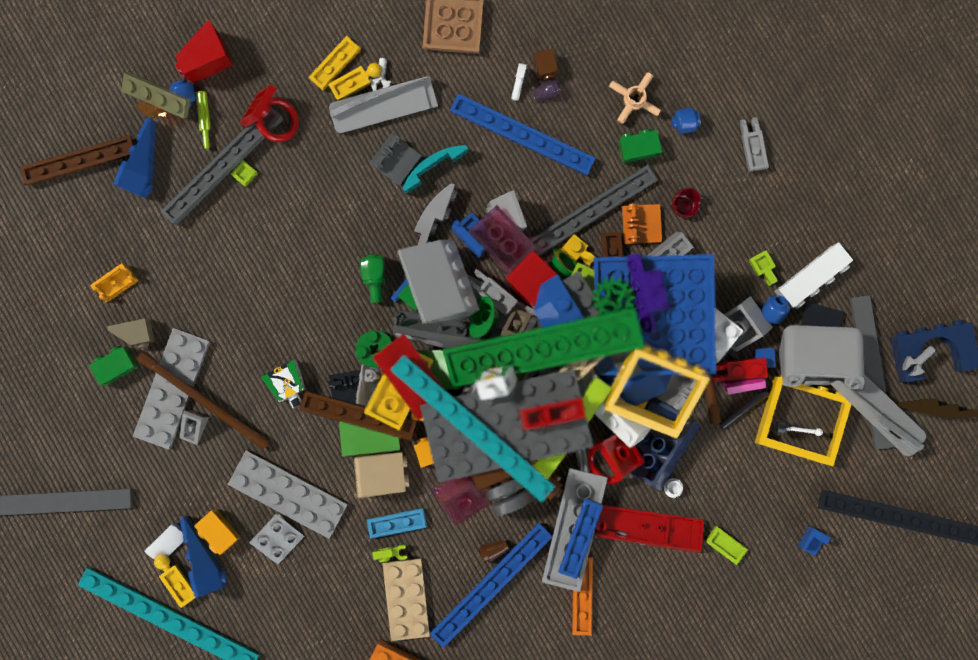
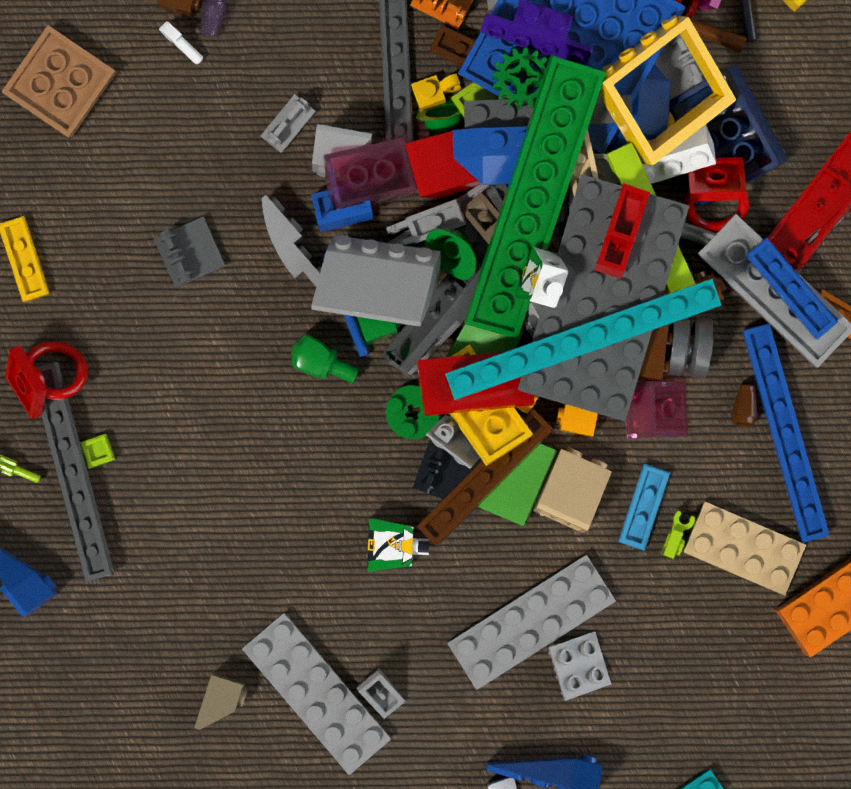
camera: 60 degrees left, 0 degrees up
(114, 282) = (143, 689): light orange hinge -> none
(114, 365) = (247, 749): green brick -> none
(152, 364) = (277, 695): reddish brown piece -> none
(217, 532) = (529, 735): light orange brick -> none
(354, 81) = (61, 247): yellow plate -> none
(374, 82) = (75, 211): white bar -> none
(383, 104) = (112, 228): light grey piece -> none
(453, 153) = (224, 176): teal slope -> none
(507, 173) = (288, 123): none -> light grey hinge
(522, 134) = (250, 76): blue plate -> none
(673, 487) = (793, 142): white plate -> none

